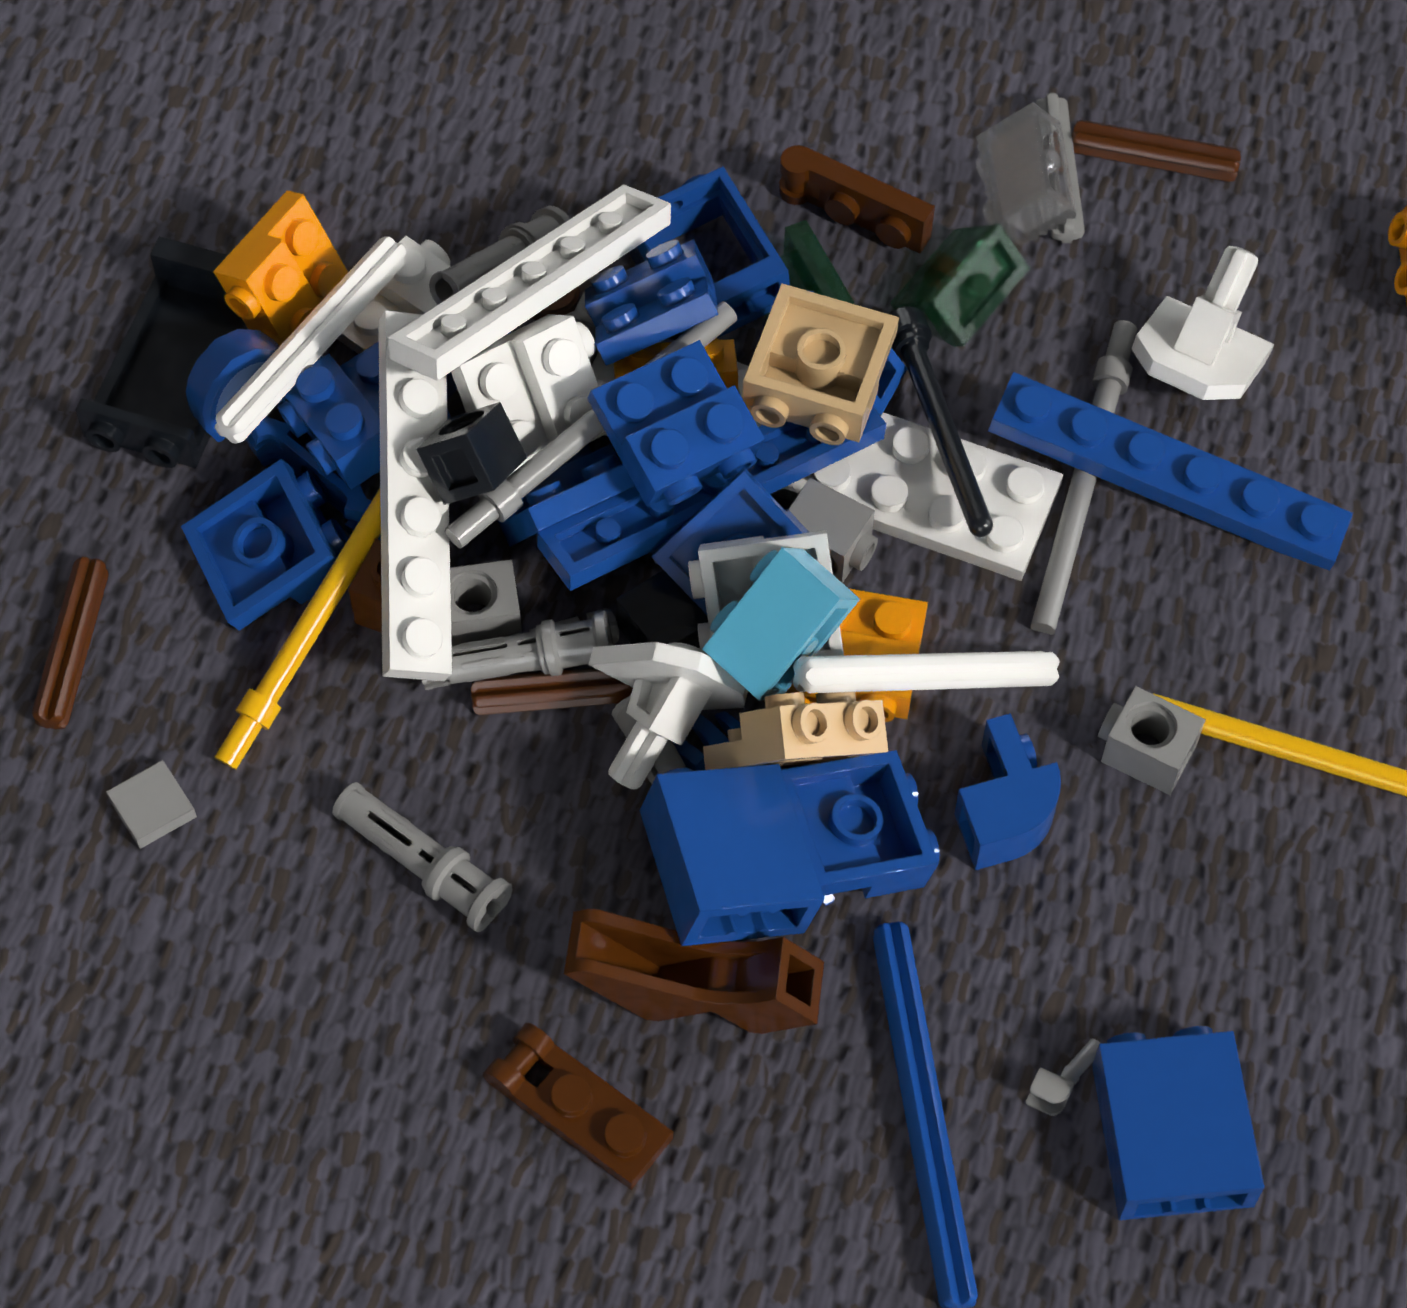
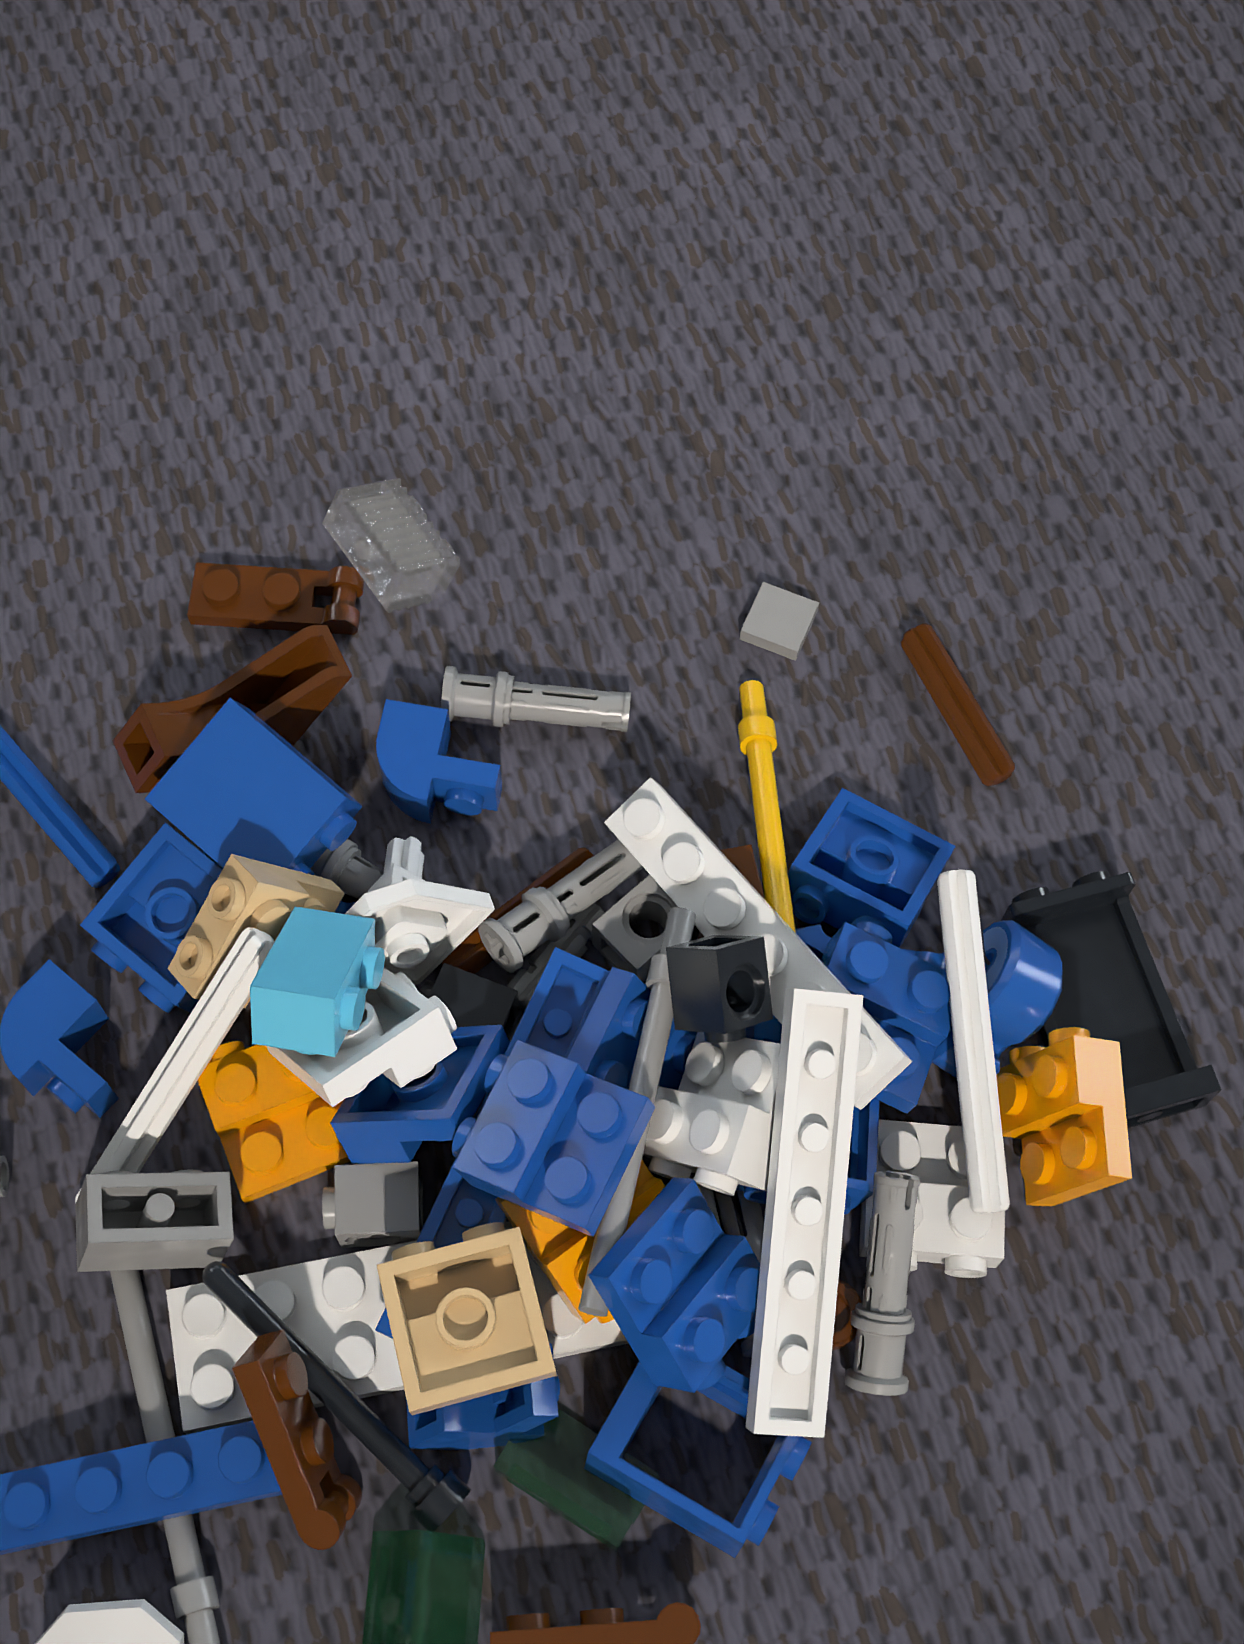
camera: 145 degrees right, 5 degrees up
(439, 1072) = (391, 543): none -> clear brick
(565, 850) = (418, 773): none -> blue brick
(985, 395) = (296, 1440): none -> reddish brown plate
(1007, 596) = (153, 1220): none -> light grey brick

